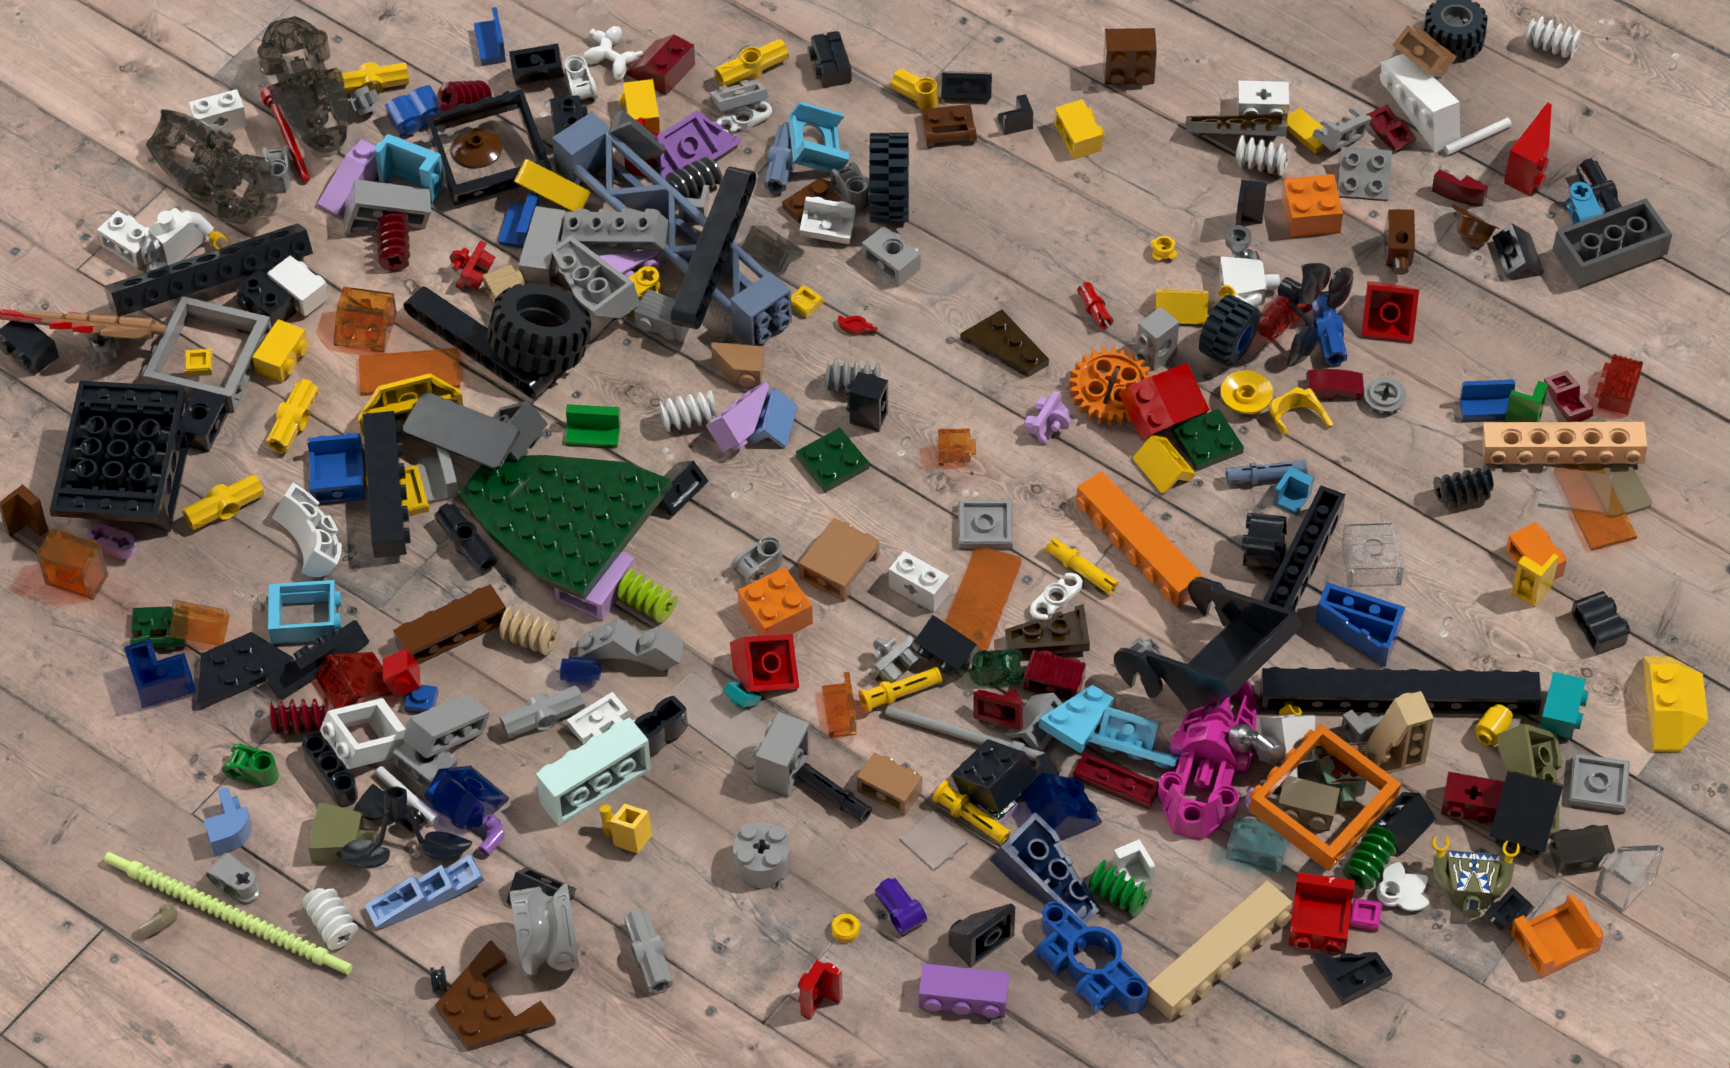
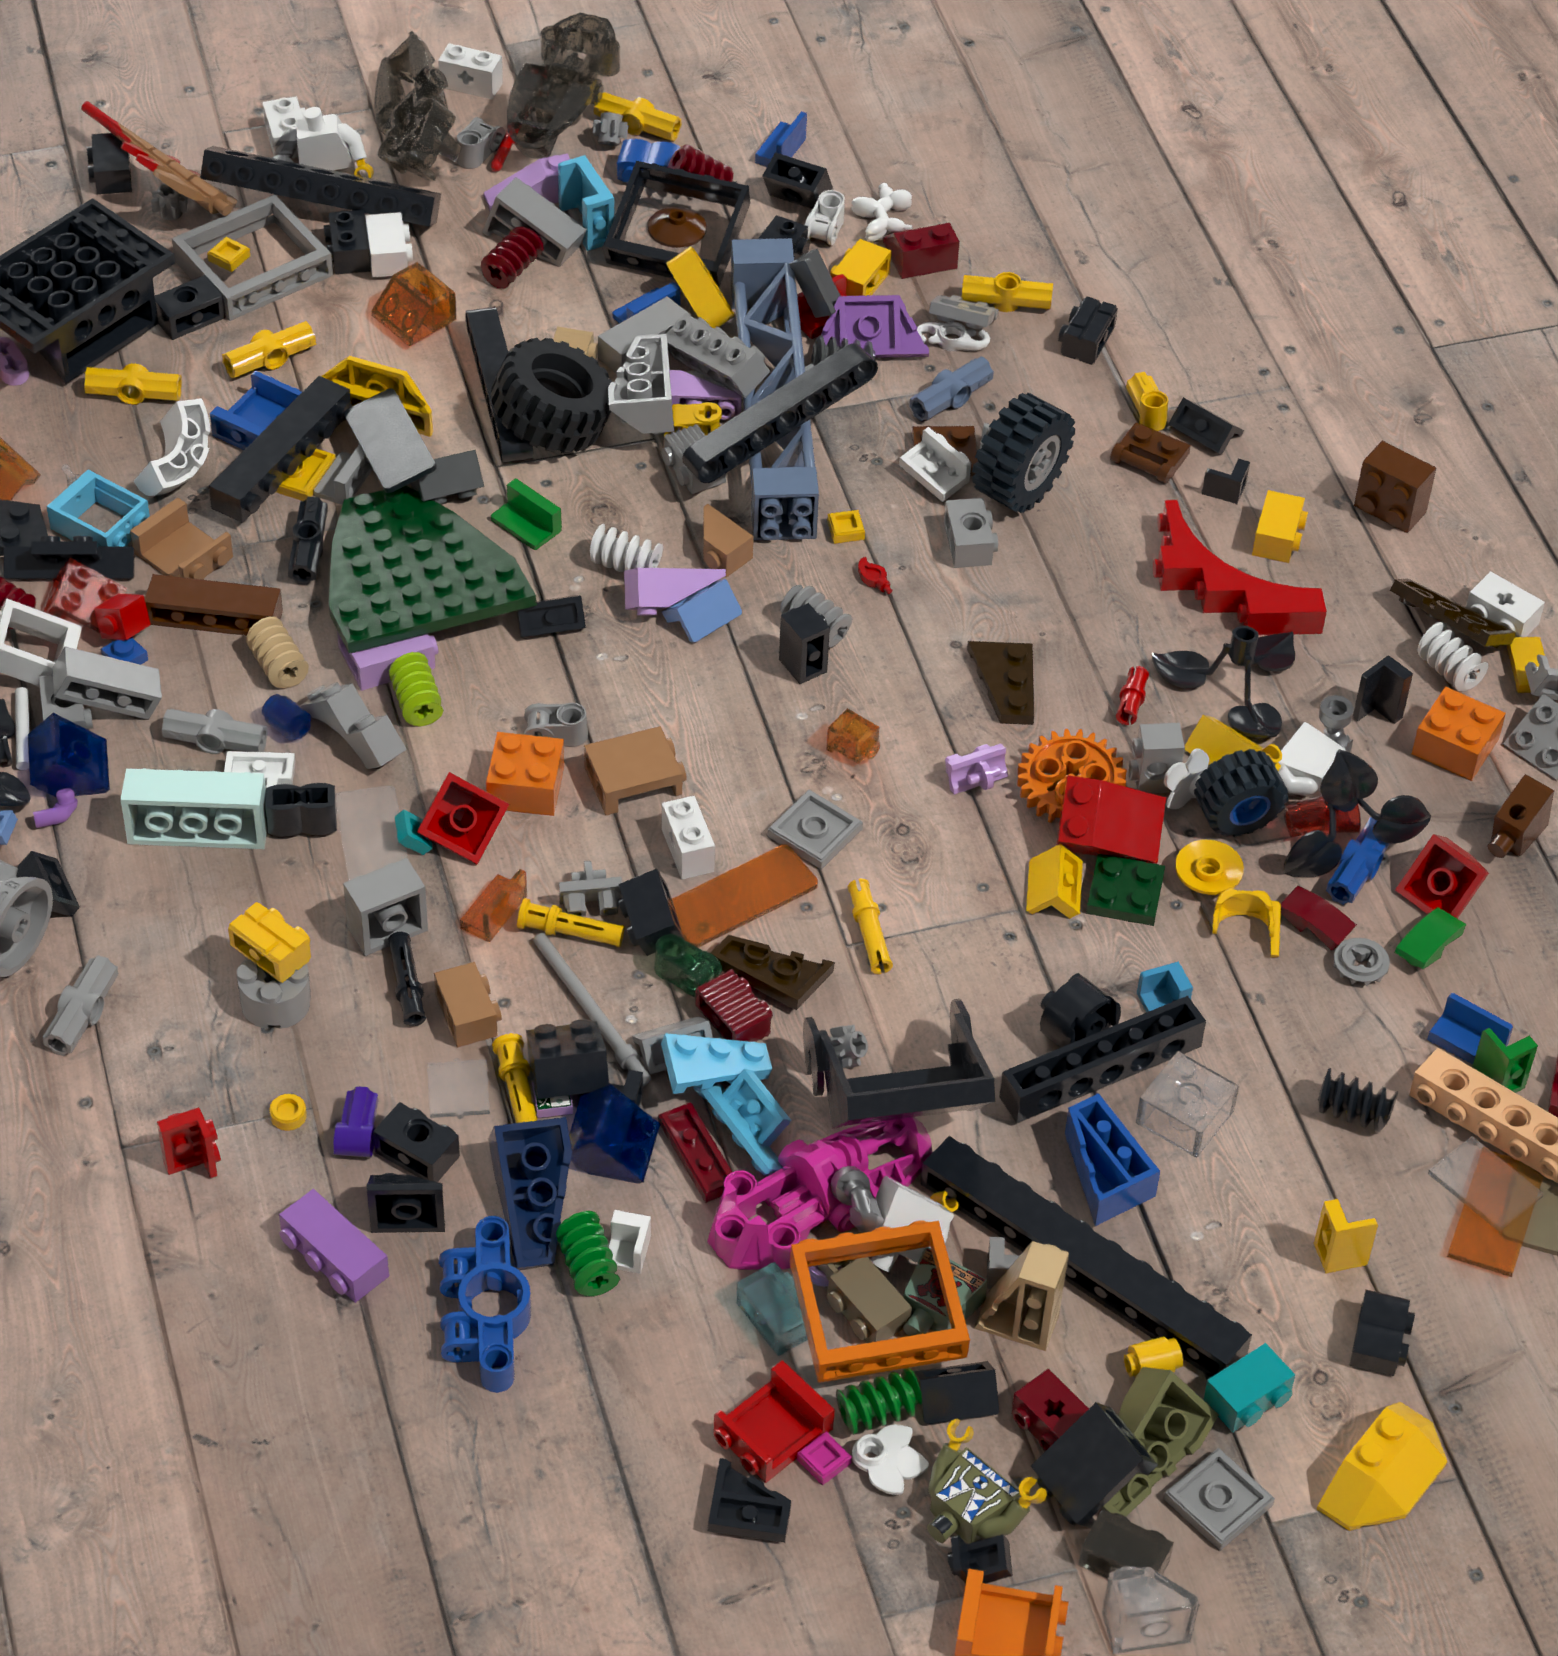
camera: 35 degrees right, 5 degrees down
(280, 351) = (316, 290): yellow brick -> none
(382, 599) = (177, 546): none -> medium nougat panel
(394, 367) = (439, 383): clear orange piece -> none
(469, 275) = (560, 313): red hips -> none
(628, 827) = (176, 880): yellow brick -> none
(748, 824) = (270, 941): none -> yellow brick
(771, 248) = (860, 459): clear smoke panel -> none
(811, 154) = (1004, 359): medium azure panel -> none
(832, 460) = (724, 680): dark green plate -> none
(938, 902) = (397, 1138): none -> black brick
(999, 709) = (643, 1005): dark red slope -> none
(1044, 601) = (801, 933): white piece -> none
(1082, 195) = (1225, 589): none -> red arch
(1137, 537) = (953, 932): orange brick -> none
(1145, 226) = (1270, 652): none -> black plant
(1165, 243) = (1262, 685): yellow plate -> none
(1186, 340) = (1182, 778): none -> white plate
(1219, 951) = (629, 1385): tan brick -> none
(1255, 473) = (1147, 952): sand blue pin -> none
(1413, 354) = (1429, 937): none -> green slope
(1535, 545) = (1381, 1201): orange brick -> none

